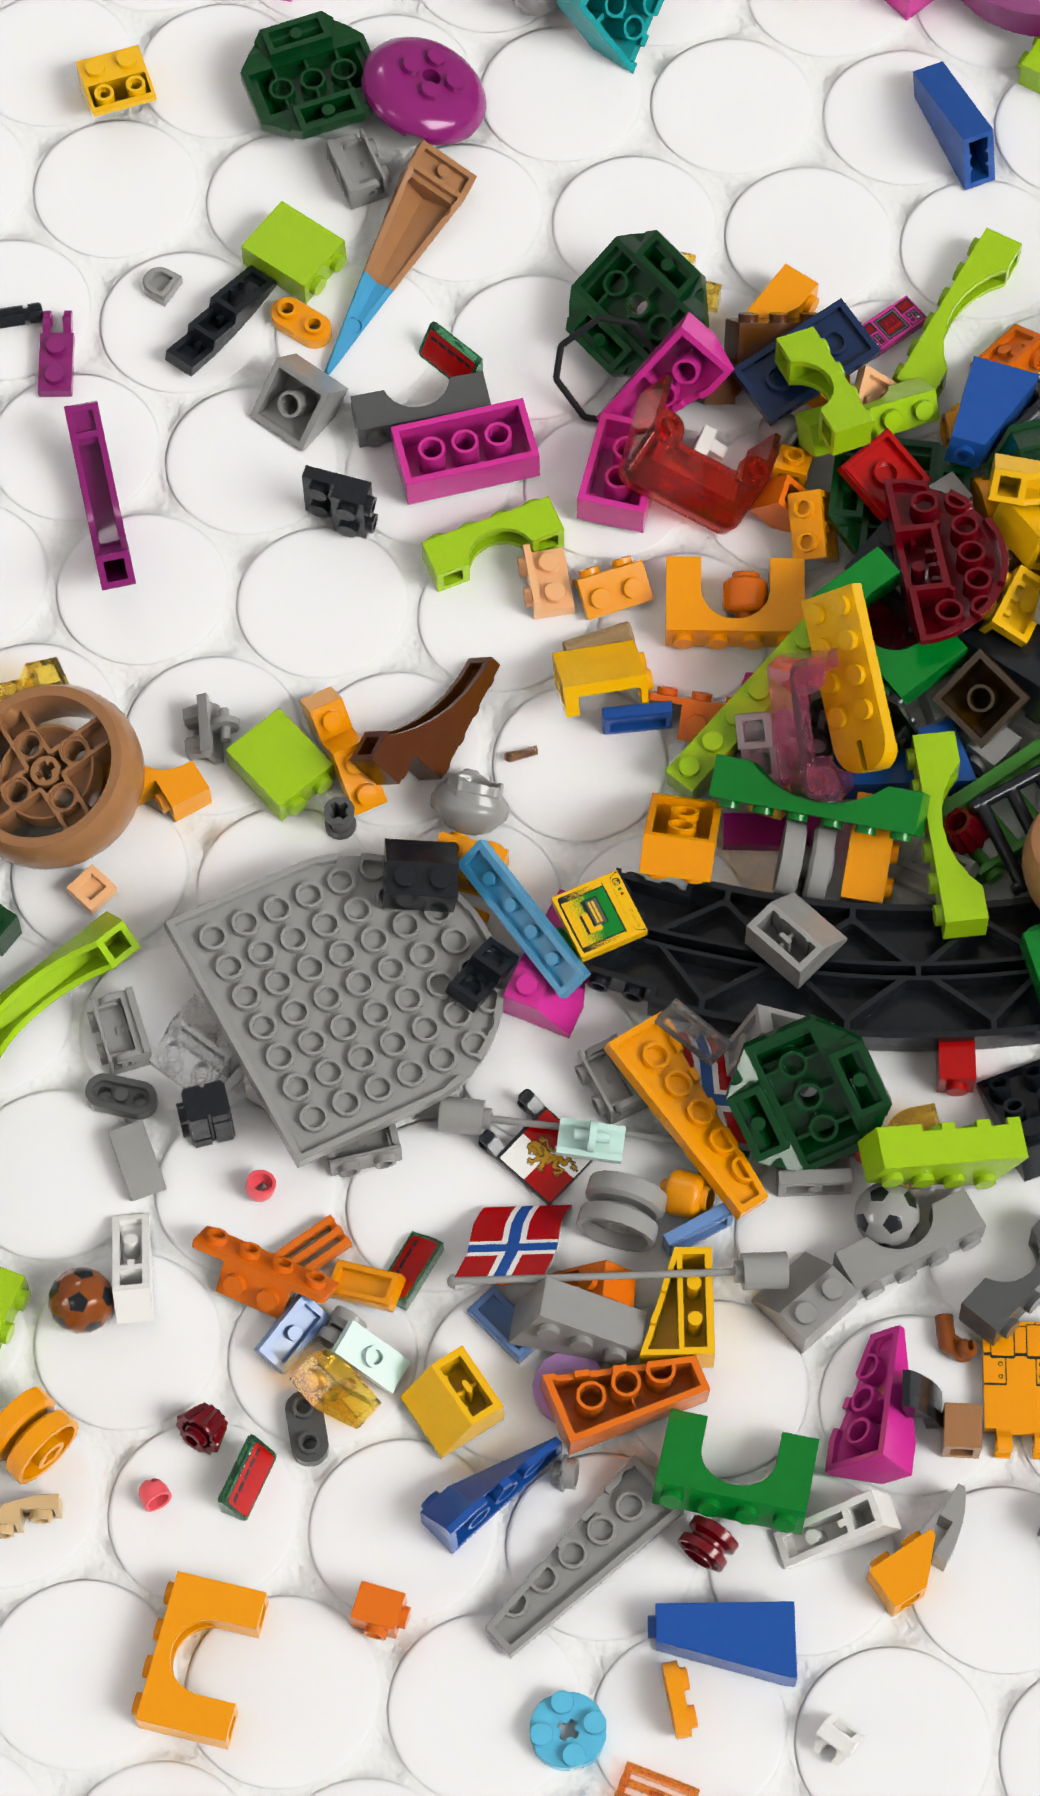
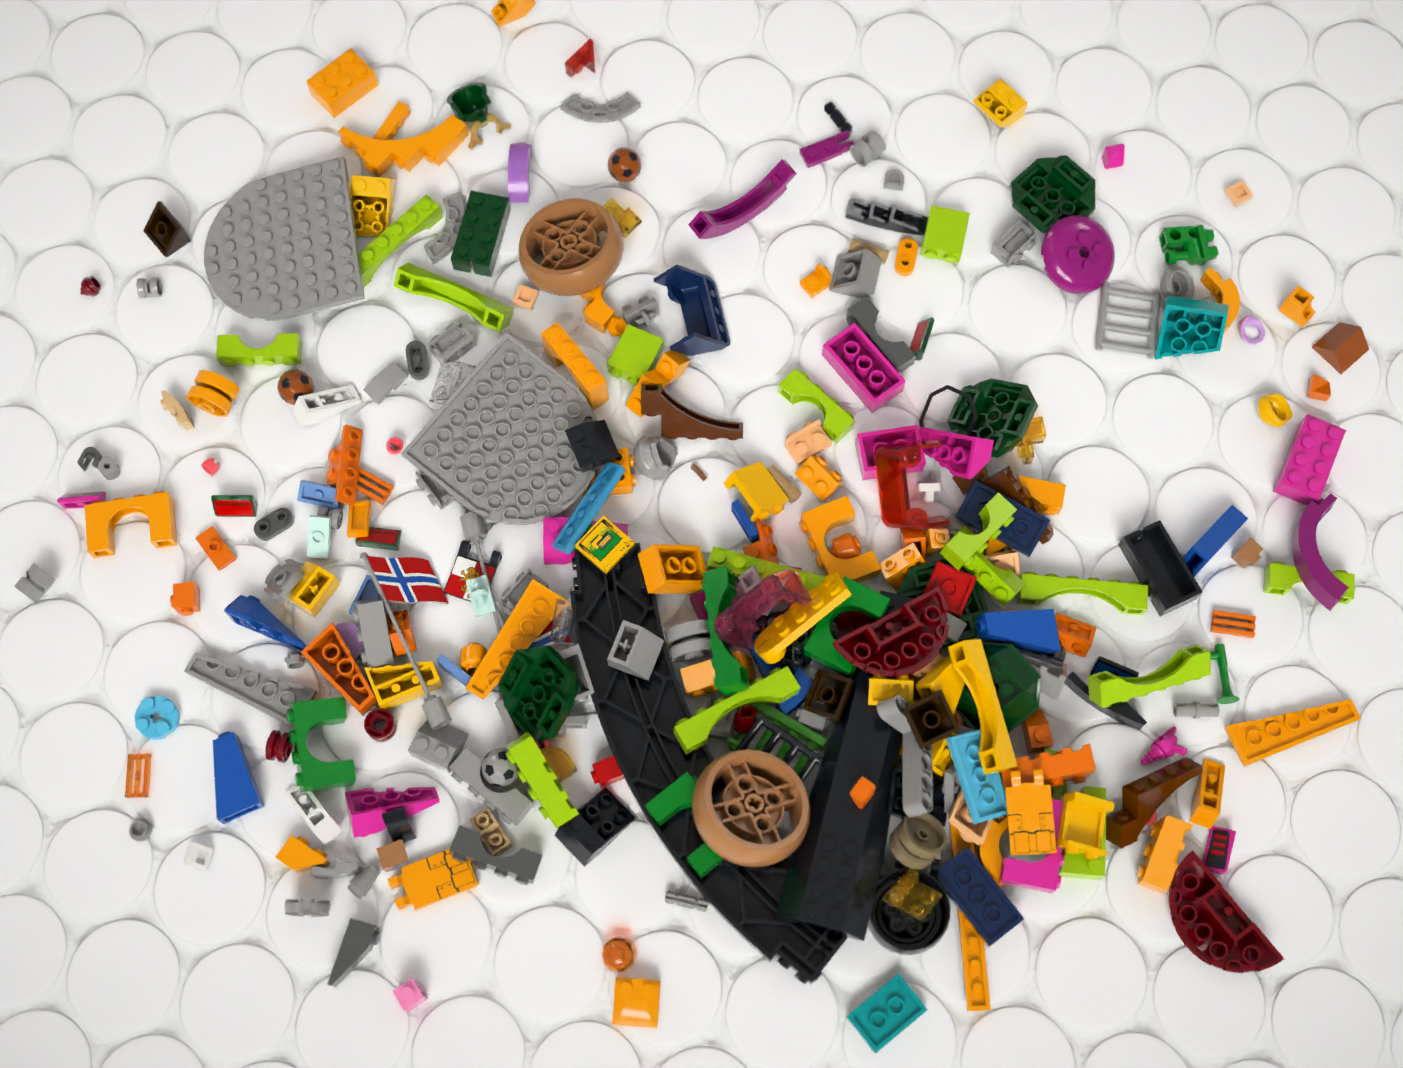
camera: 65 degrees right, 5 degrees up
(74, 1666) = (105, 464): none -> leg
(91, 294) = (868, 147): none -> light grey wheel
(111, 1730) = (79, 500): none -> dark pink slope
(202, 1428) = (251, 473): dark red piece -> none
(206, 1114) = (418, 402): black brick -> none
(215, 772) = (616, 326): none -> light orange plate
(226, 850) = (562, 349): none -> light orange arch
(252, 644) = (700, 310): none -> dark blue windscreen
(262, 363) = (857, 245): none -> tan piece
(280, 459) = (816, 281): none -> light orange bracket
(307, 1537) = (215, 548): none -> orange plate
(335, 1389) = (294, 526): clear yellow slope -> none
(339, 809) = (616, 392): dark grey bush -> none
(342, 498) = (799, 321): black plate -> none
(420, 207) = (1004, 284): medium nougat plate -> none
(438, 1435) = (283, 579): none -> light grey plate
(482, 974) = (549, 501): black slope -> none
(550, 113) = (1153, 315): none -> light grey bar
(622, 1211) = (445, 626): light grey wheel -> none
(682, 1715) = (195, 761): light orange plate -> none
(737, 1359) = (376, 716): none -> dark red wheel
(895, 324) = (1060, 560): tile -> none
(951, 1344) = (444, 832): dark orange arm -> none
(963, 199) = (1160, 567): none -> black piece
(966, 1273) = (491, 832): none -> tan slope
(985, 1493) = (363, 882): none -> light grey cone
(990, 88) = (1248, 554): none -> medium nougat plate
(995, 1594) = (307, 907): none -> light grey plate

